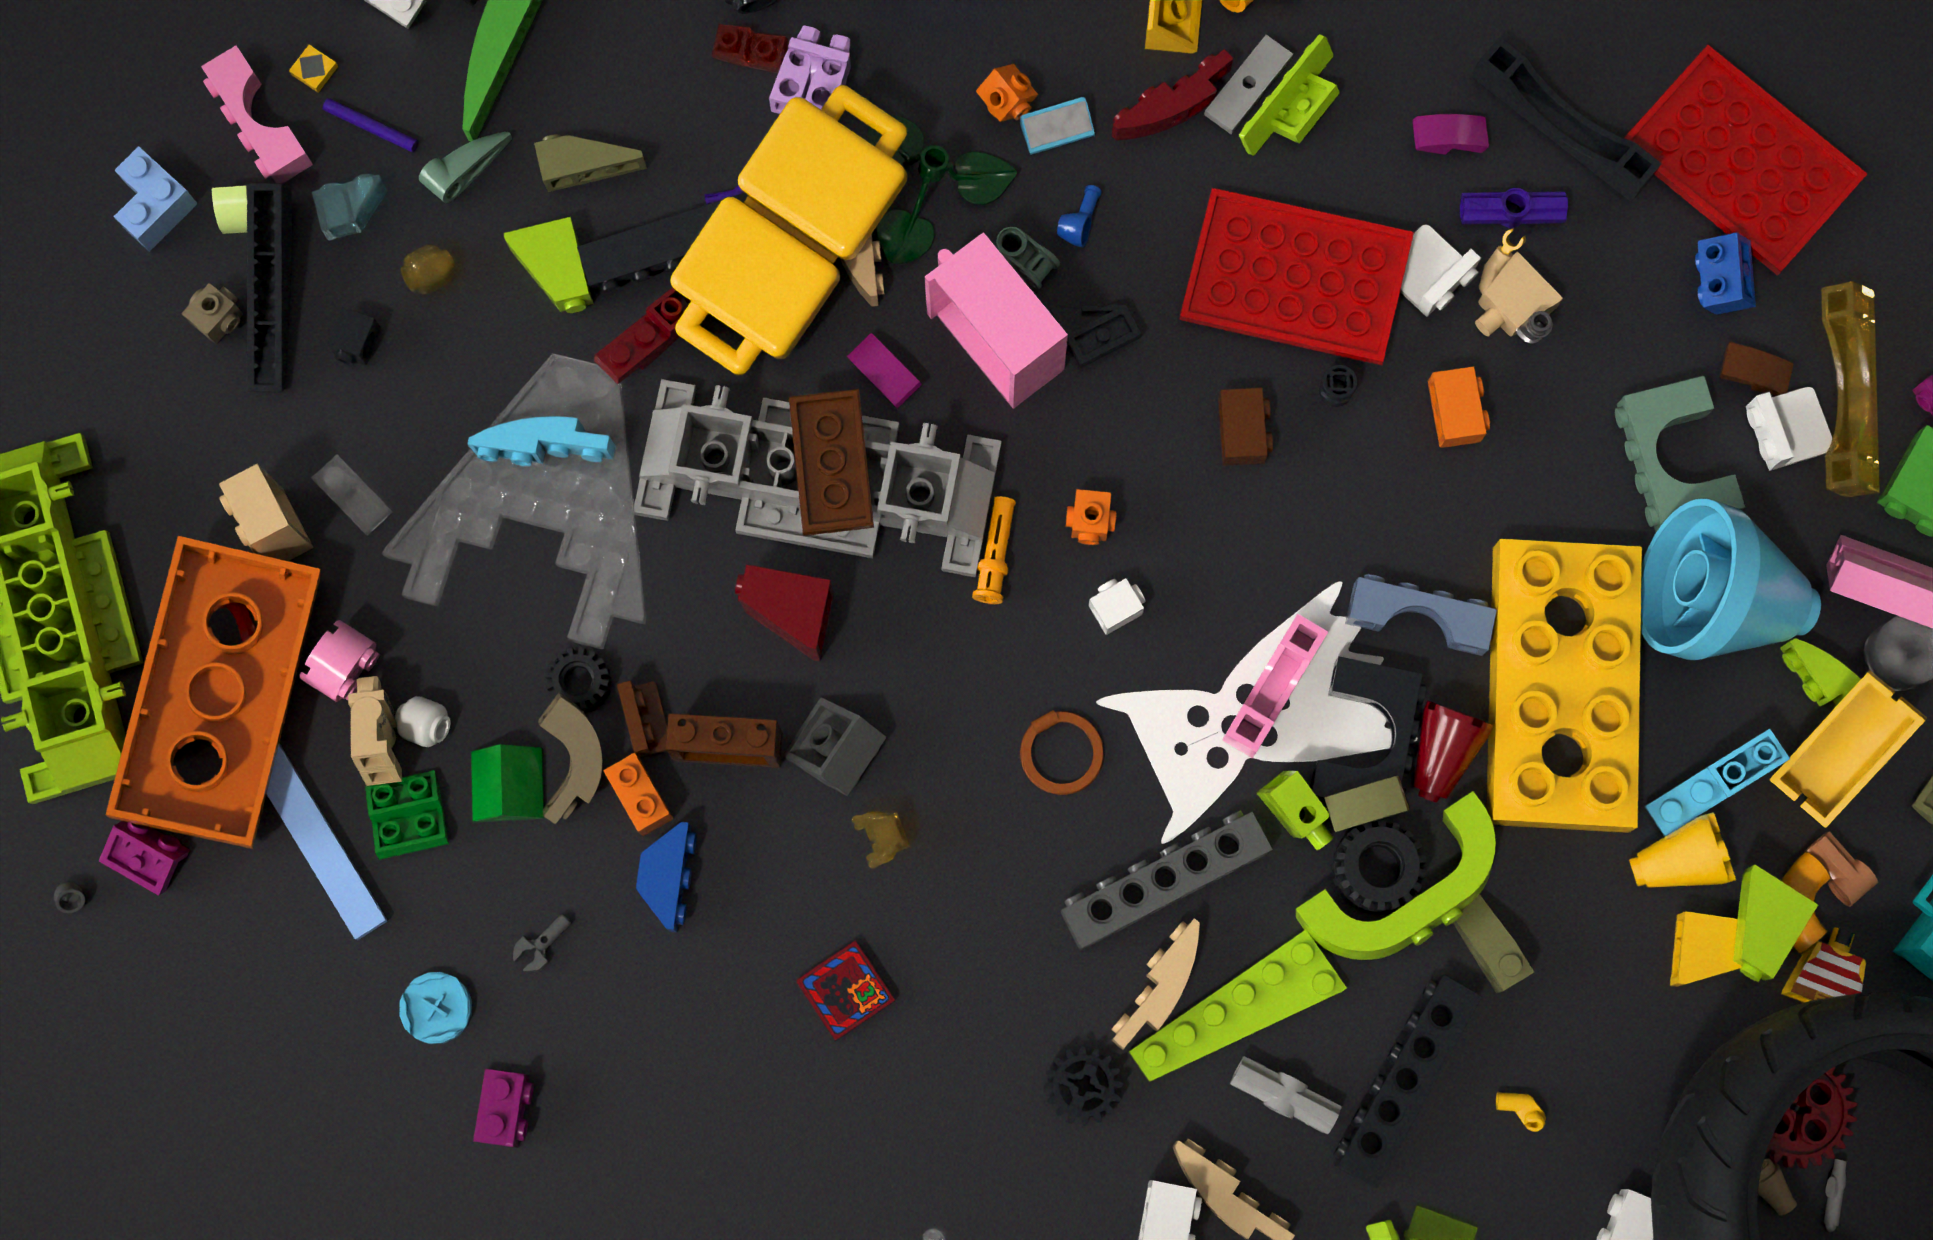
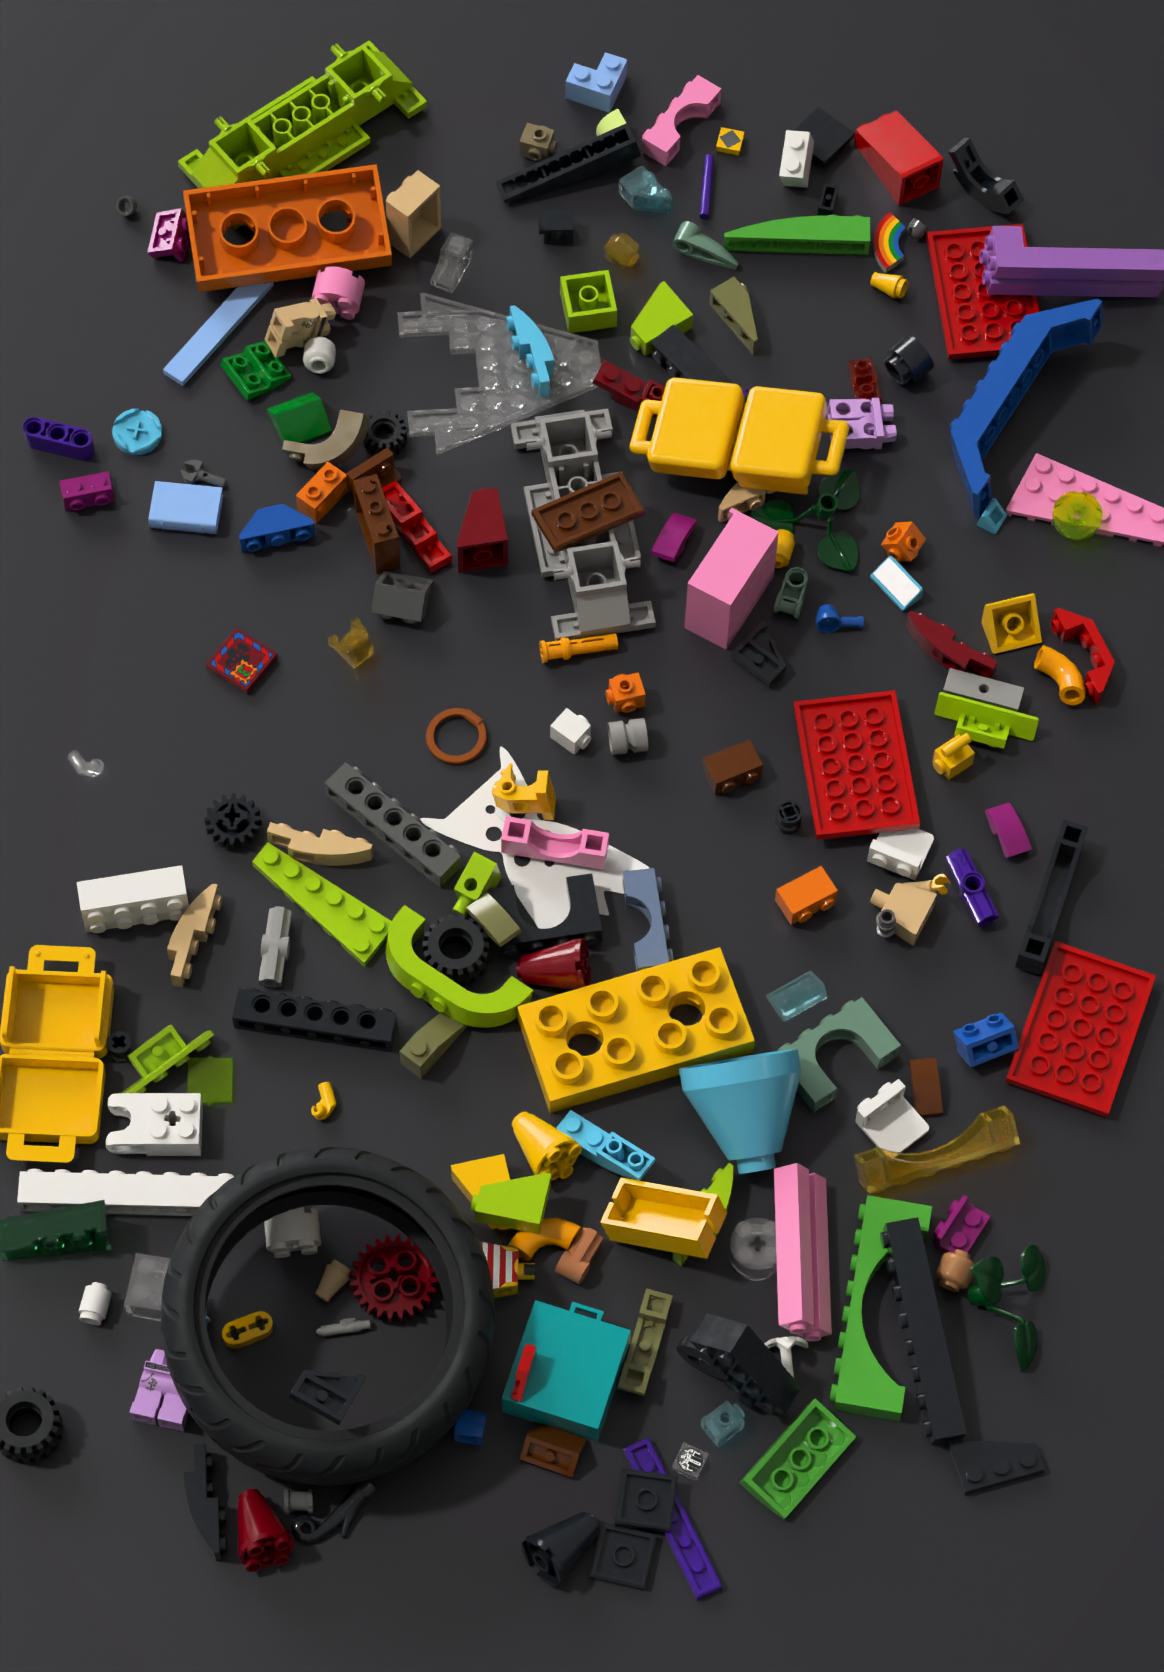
camera: 65 degrees right, 15 degrees down
(390, 1127) = (50, 430): none -> dark purple beam
(491, 341) = (588, 301): none -> lime brick
(585, 984) = (185, 507): none -> light blue piece
(736, 693) = (415, 529): none -> red slope
(948, 238) = (784, 548): none -> yellow brick
(1152, 543) = (628, 736): none -> light grey wheel
(1205, 686) = (525, 799): none -> yellow tile
(1328, 156) = (953, 756): none -> yellow brick
(1576, 472) = (797, 995): none -> clear light blue slope

